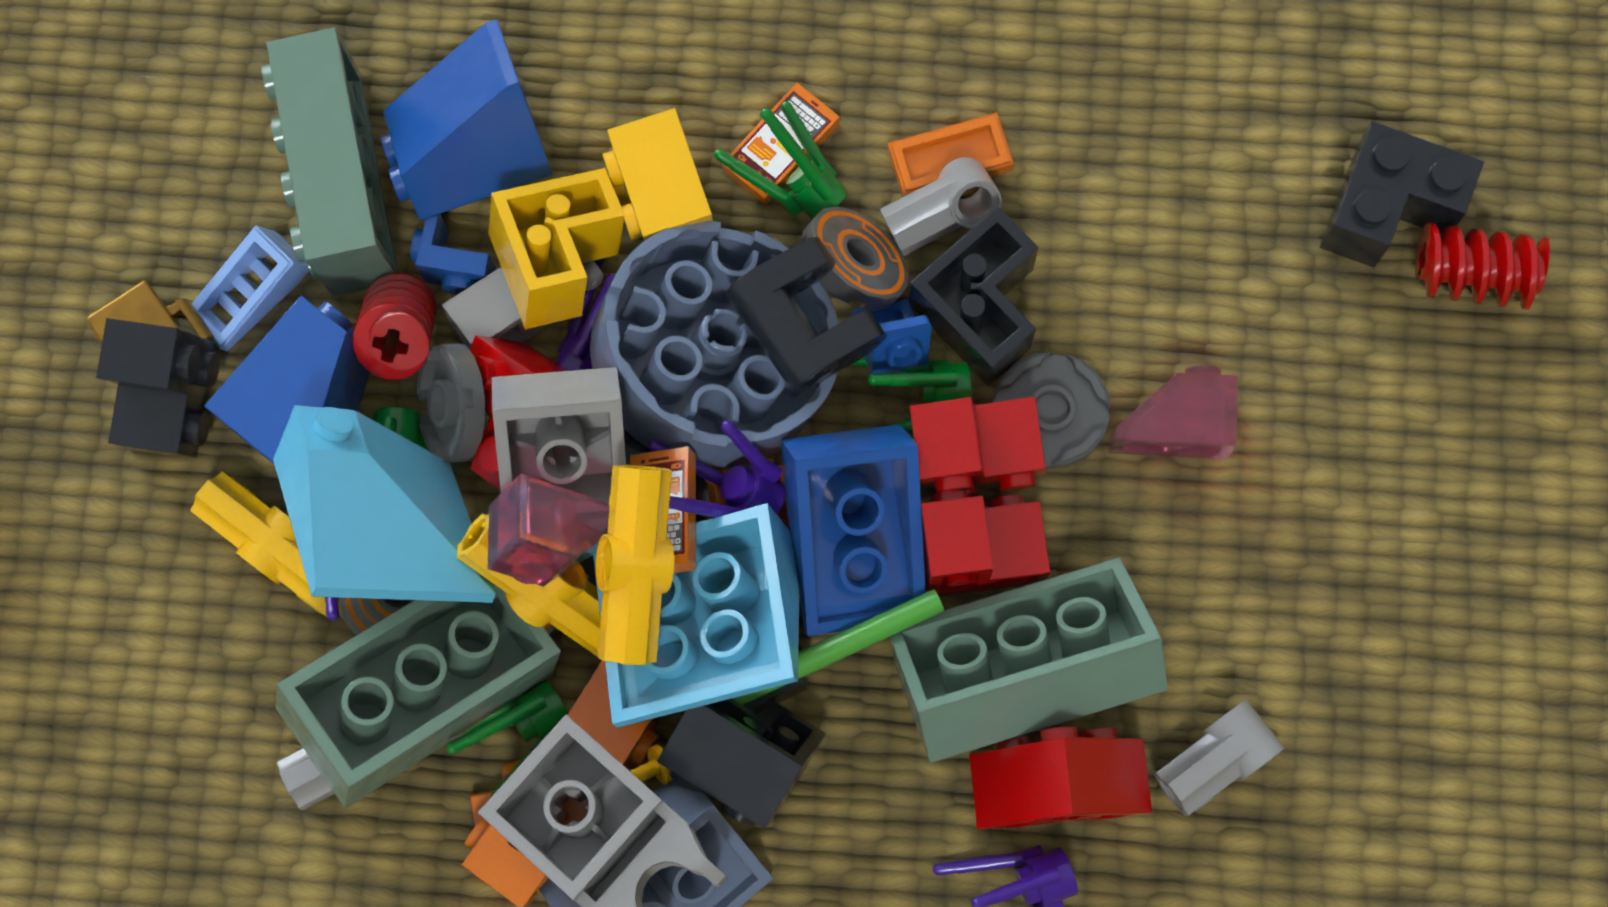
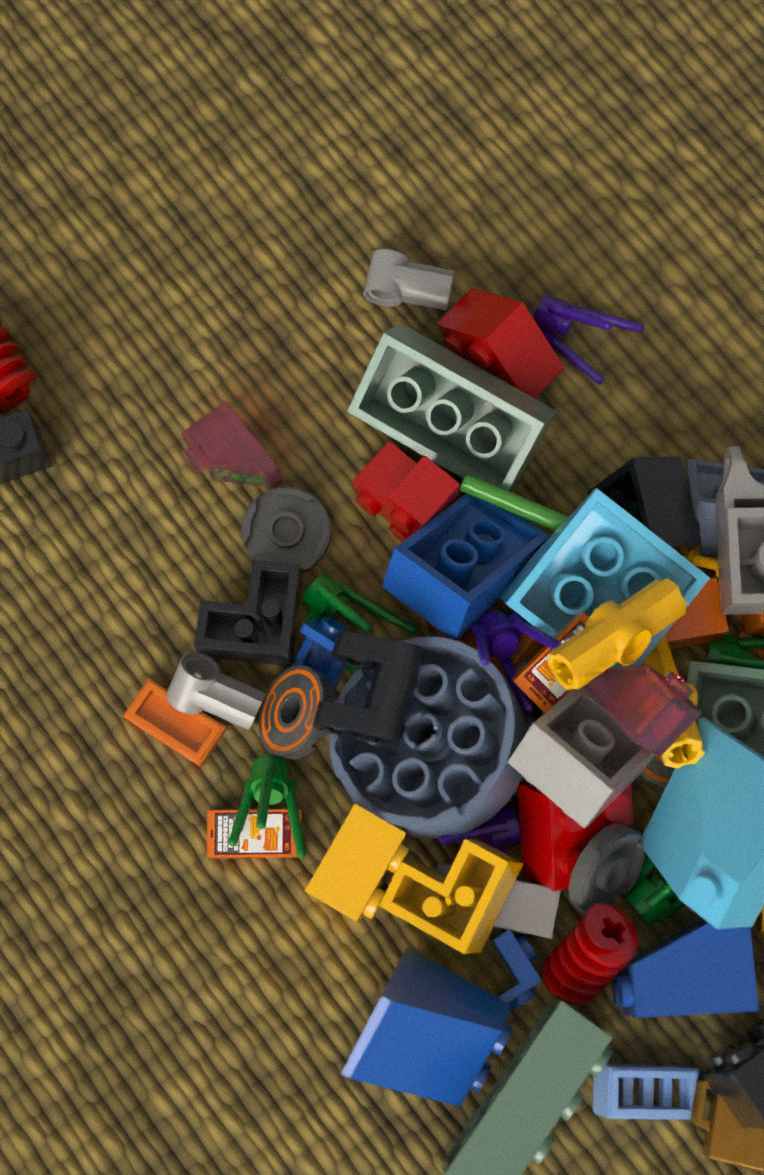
camera: 135 degrees left, 0 degrees up
(978, 444) = (348, 540): red brick -> none

